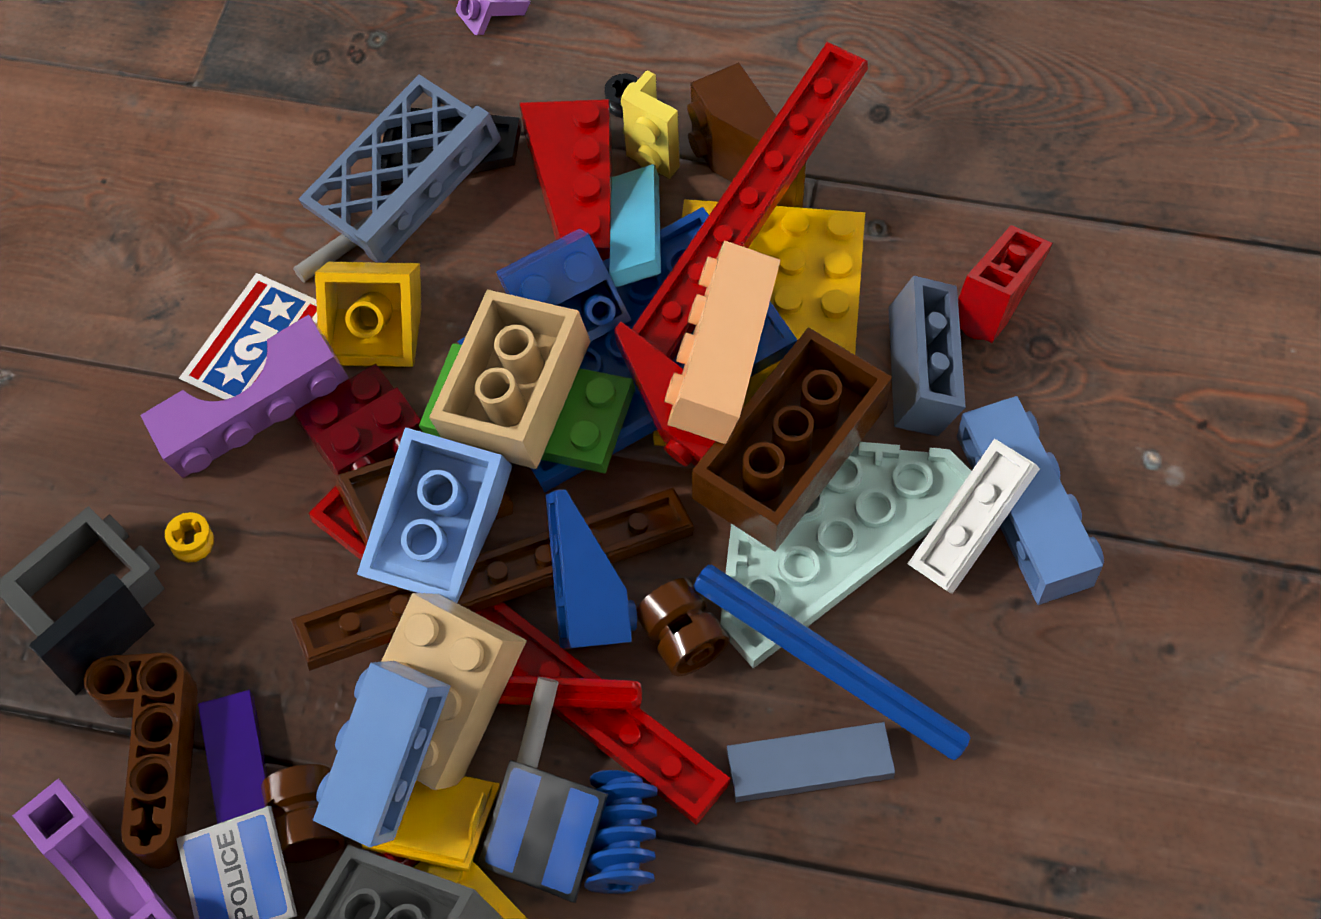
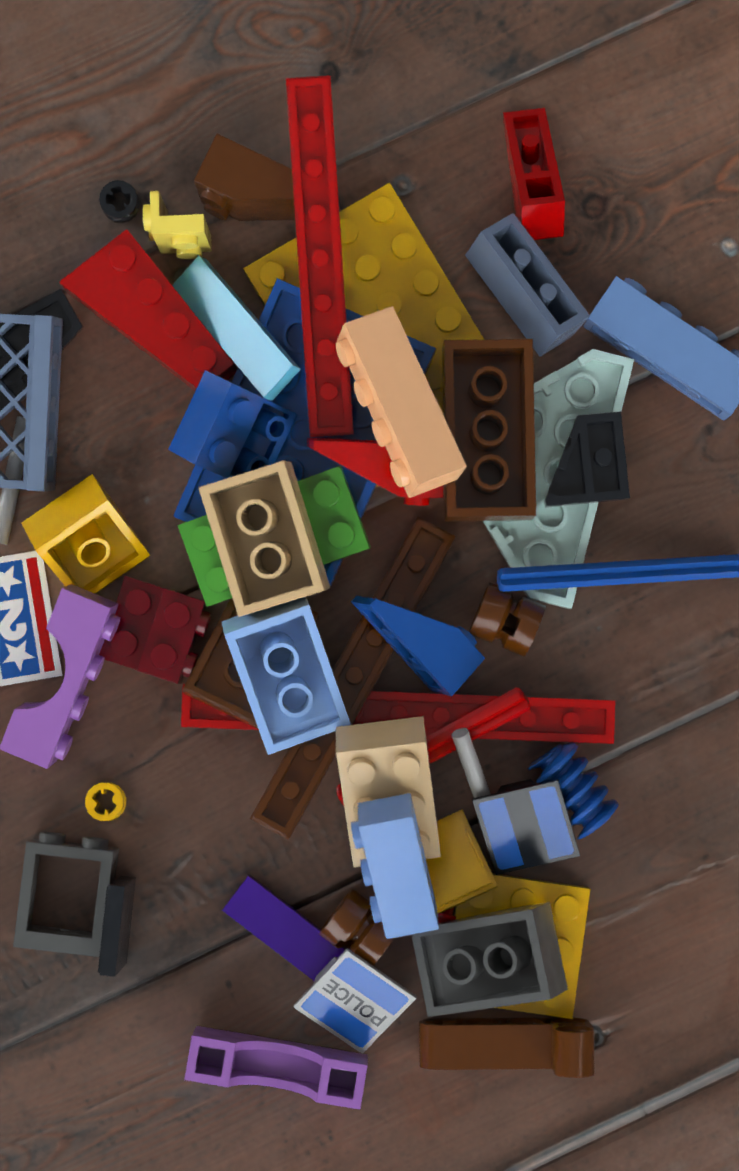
camera: 40 degrees left, 25 degrees up
(149, 759) = (223, 969): reddish brown beam -> none
(810, 762) = (654, 647): sand blue tile -> none
(871, 538) = (591, 463): none -> black wing
(973, 516) = (648, 393): white tile -> none

